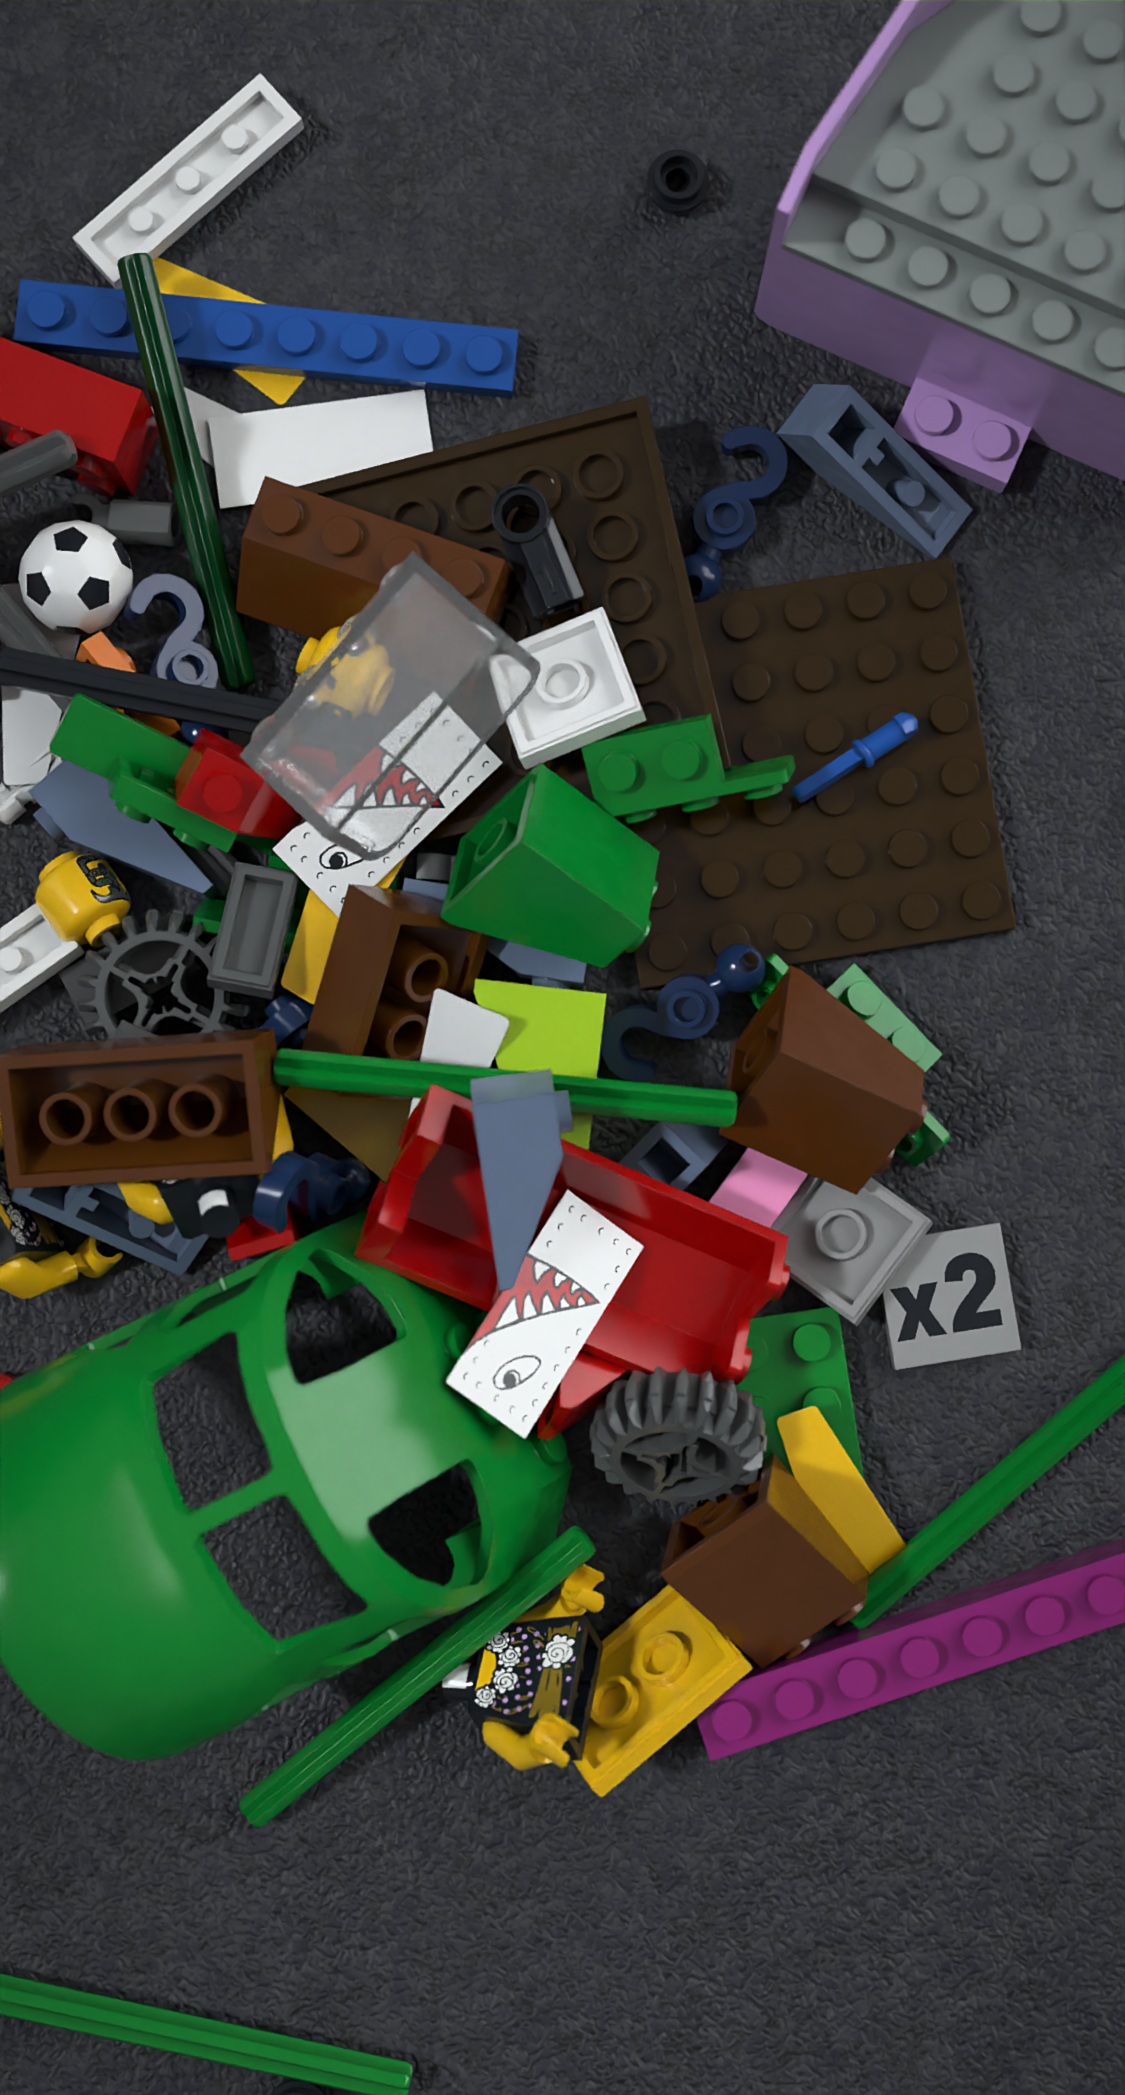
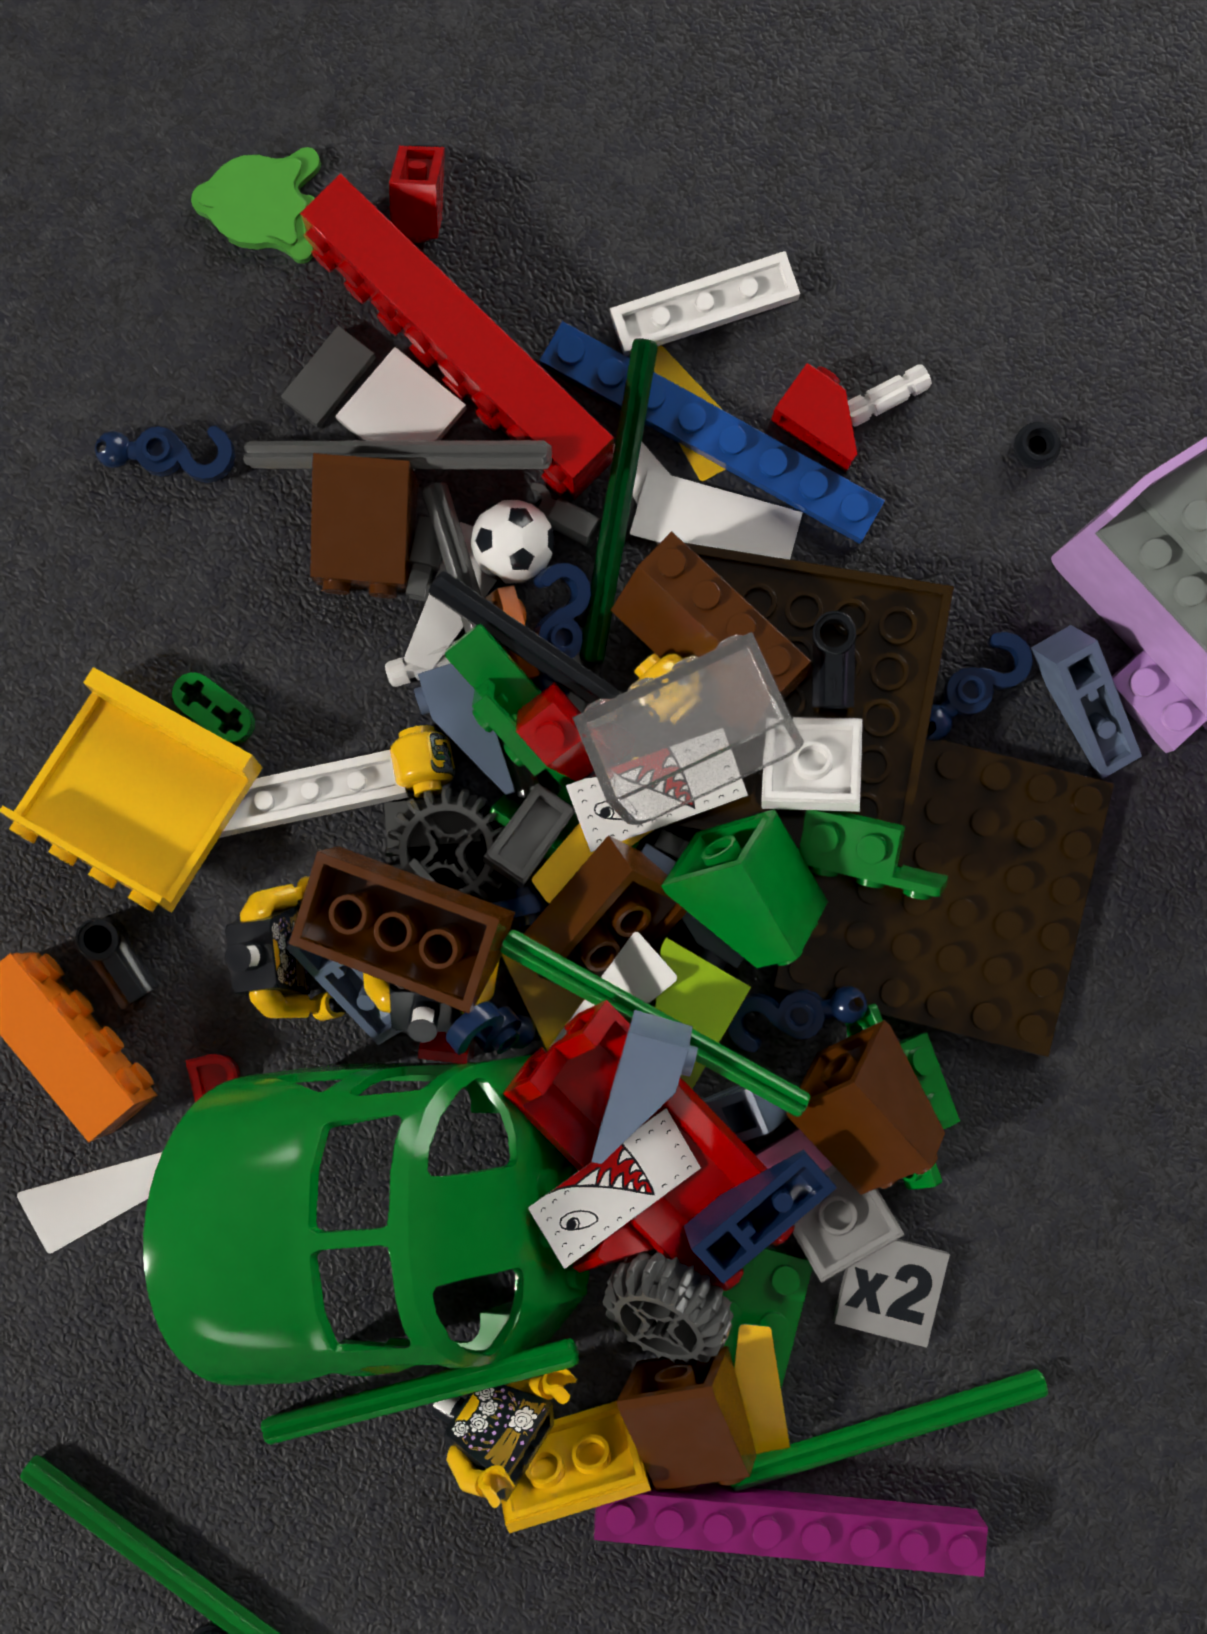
camera: 25 degrees right, 0 degrees up
(389, 260) = (819, 415): none -> red slope
(465, 199) = (889, 394): none -> white axle
(734, 1267) = (756, 1214): none -> dark blue slope
(864, 752) = (997, 893): blue piece -> none

